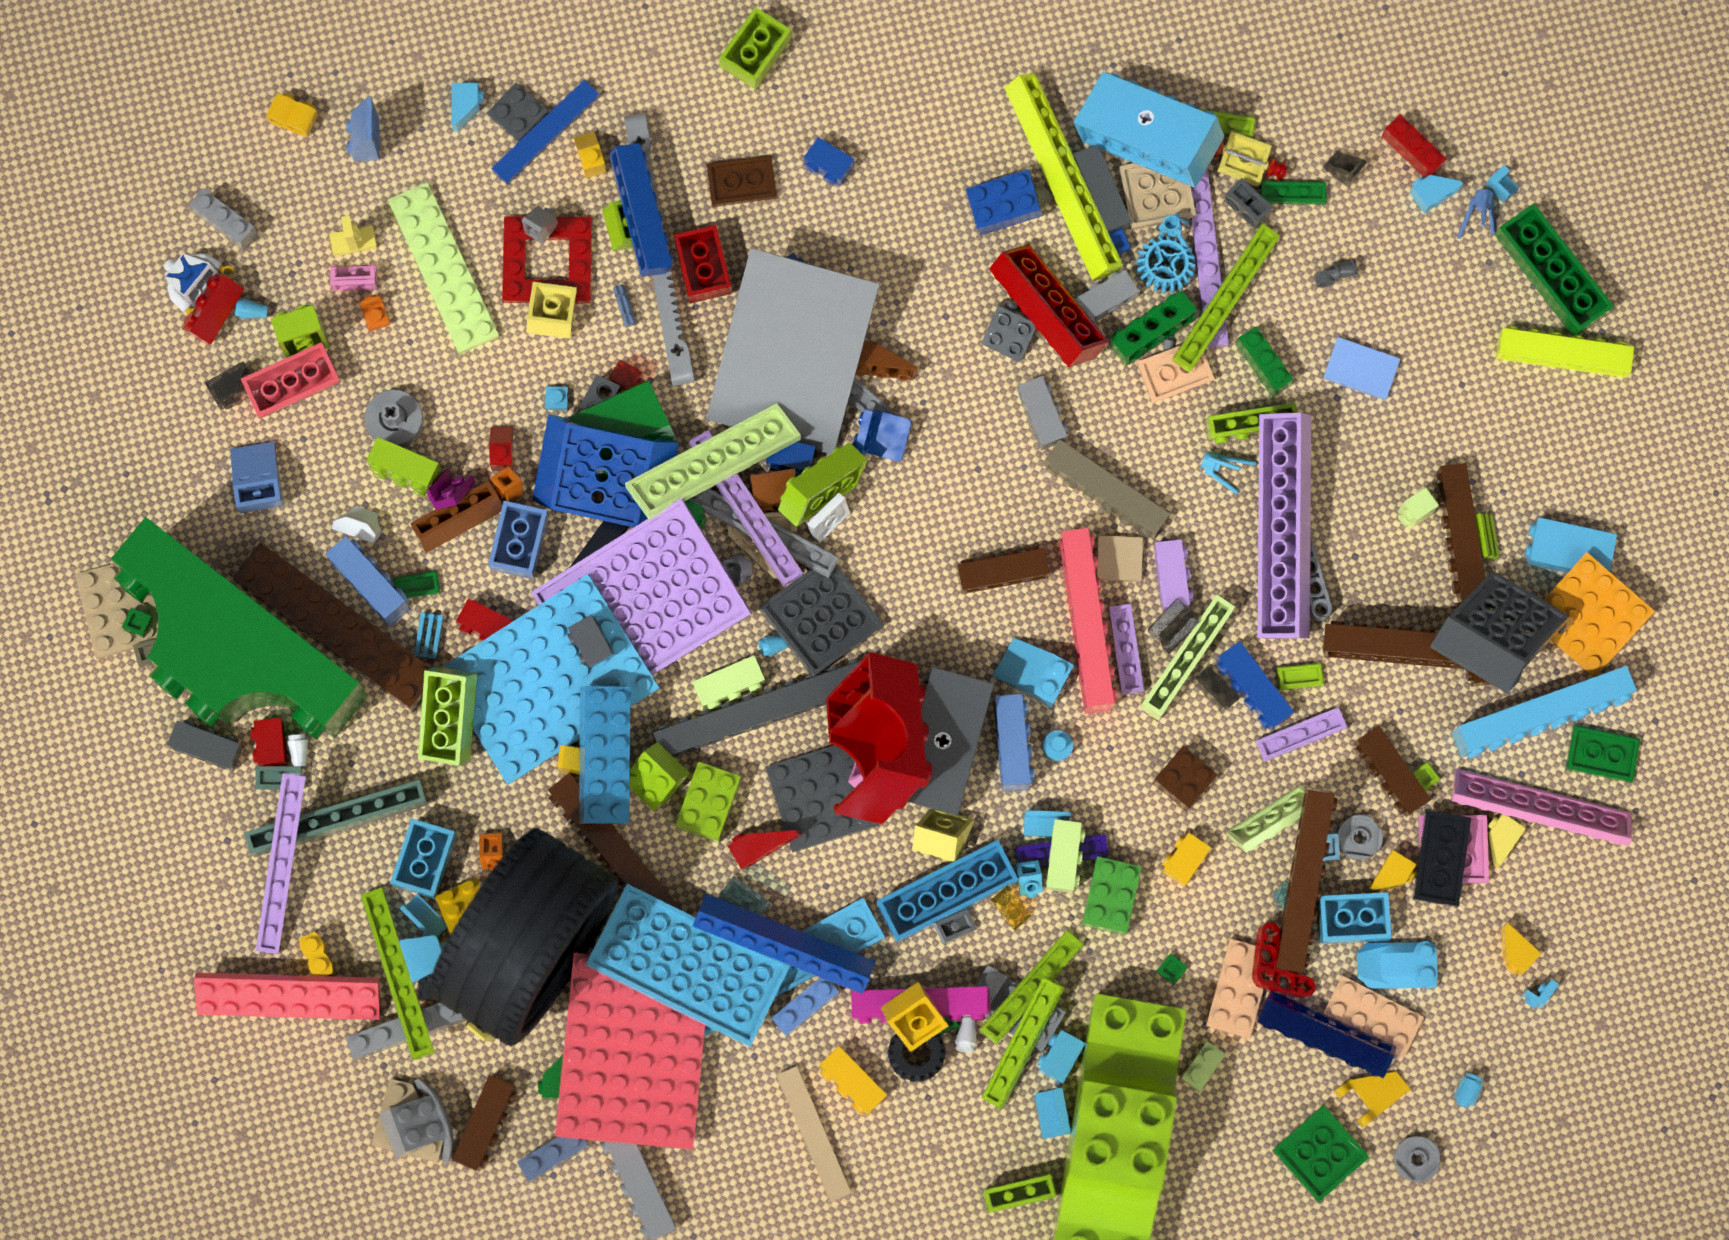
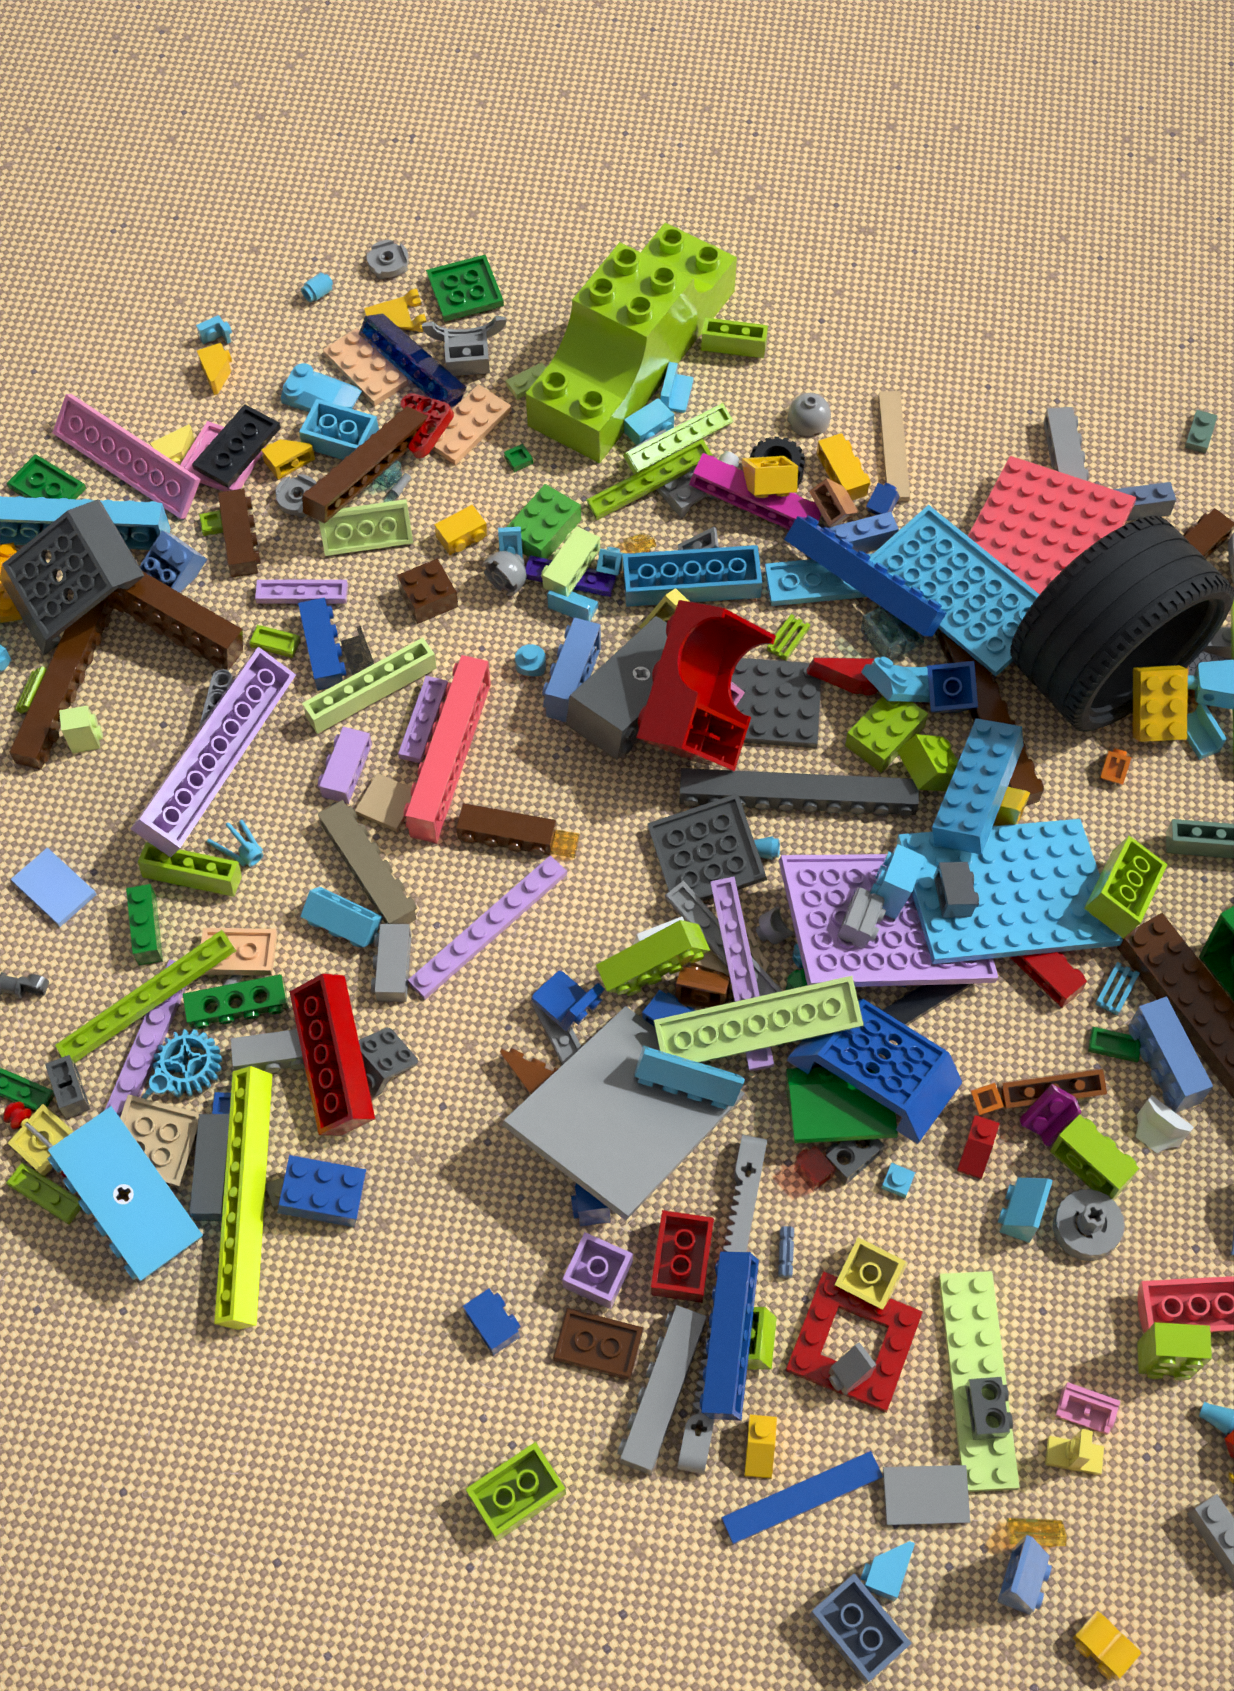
camera: 155 degrees left, 15 degrees down
(365, 172) = (1044, 1531): none -> clear yellow plate
(374, 312) = (1074, 1356): orange bracket -> none
(423, 858) = (1187, 777): medium azure brick -> none
(432, 237) = (981, 1408): none -> dark grey brick
(448, 407) = (1025, 1207): none -> medium azure slope
(454, 167) = (926, 1495): none -> light grey tile
(471, 54) = (860, 1629): none -> sand blue brick
(517, 112) = (827, 1536): dark grey plate -> none
(518, 540) = (992, 1039): medium blue brick -> none
(644, 625) = (897, 878): none -> medium azure brick
(660, 579) = (861, 918): none -> light grey brick
(663, 862) = (952, 687): none -> blue slope
(677, 164) = (663, 1389): none -> light grey brick
(707, 849) = (898, 682): none -> medium azure slope
(729, 683) = (824, 828): yellowish green brick -> none
(753, 398) = (688, 1076): none -> medium azure slope
(763, 227) = (597, 1270): none -> lavender brick
(799, 1053) = (883, 499): none -> blue brick
(830, 890) = (796, 624): none -> lime tile
(841, 1020) = (836, 505): none -> nougat torso
(909, 1135) = (809, 414): none -> light grey cylinder
(947, 582) = (565, 843): none -> clear yellow tile
(978, 480) = (487, 927): none -> lavender plate
(1033, 672) = (520, 730): medium azure slope -> none
(1103, 432) = (341, 917): none -> medium azure brick
(1120, 824) = (505, 571): none -> light grey cylinder
(1127, 850) = (510, 540): none -> medium azure plate
(1173, 625) = (367, 713): clear smoke panel -> none
(1269, 883) = (398, 488): none -> light grey piece
(1282, 1074) = (466, 348): none -> light grey piece
(1436, 705) = (172, 562): none -> medium blue slope

